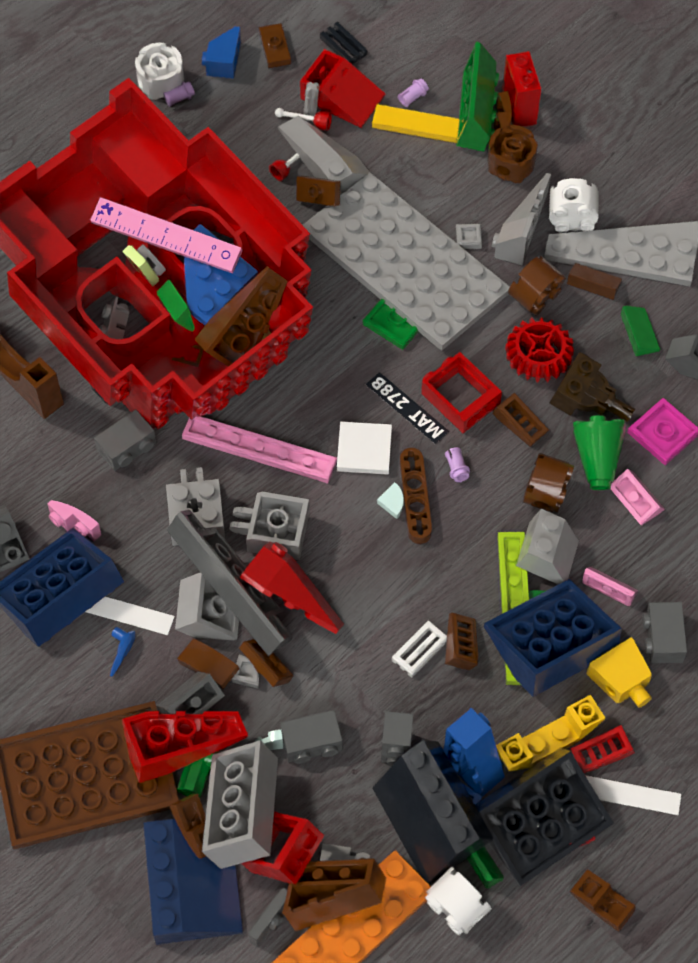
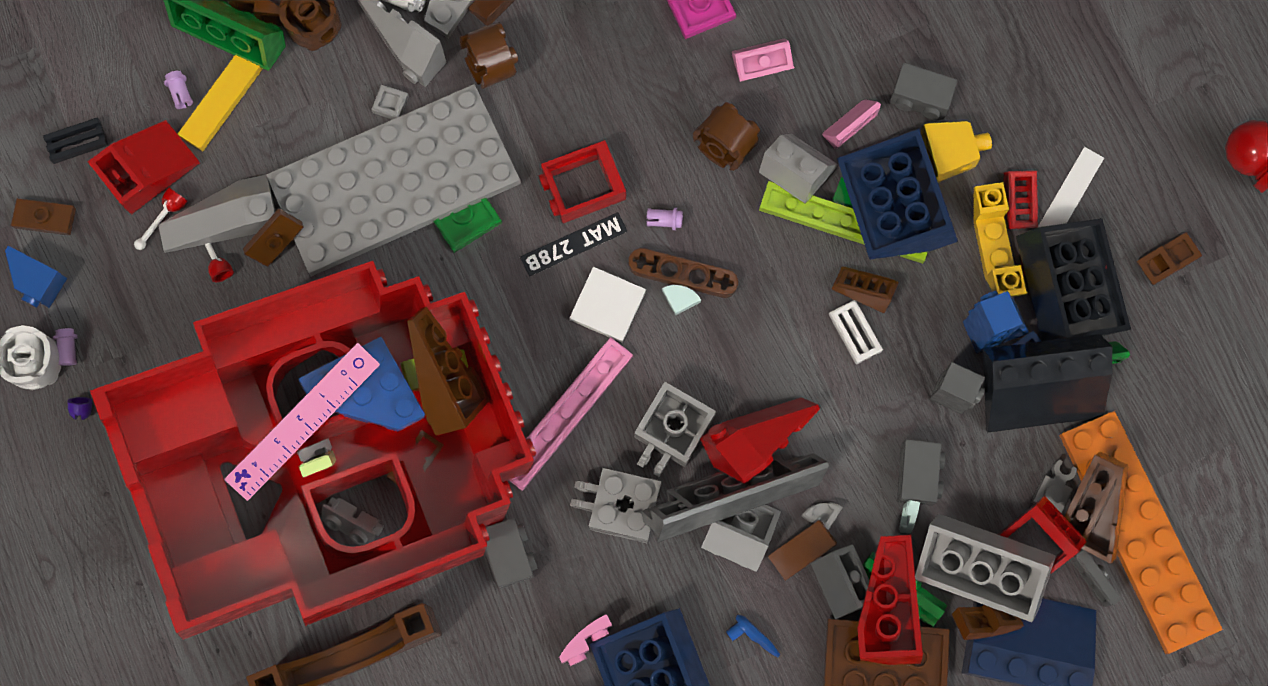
camera: 70 degrees left, 15 degrees up
(132, 615) = (716, 608): white sticker -> none
(176, 305) = (384, 442): green slope -> none
(269, 666) = (832, 487): reddish brown plate -> none
(311, 99) = (146, 201): light grey axle -> none
(457, 900) = (1140, 392): white brick -> none
(515, 426) = (619, 132): reddish brown slope -> none
(541, 358) = (580, 71): red gear -> none
(588, 391) = (629, 56): dark brown brick -> none
(599, 449) = (705, 71): green cone -> none

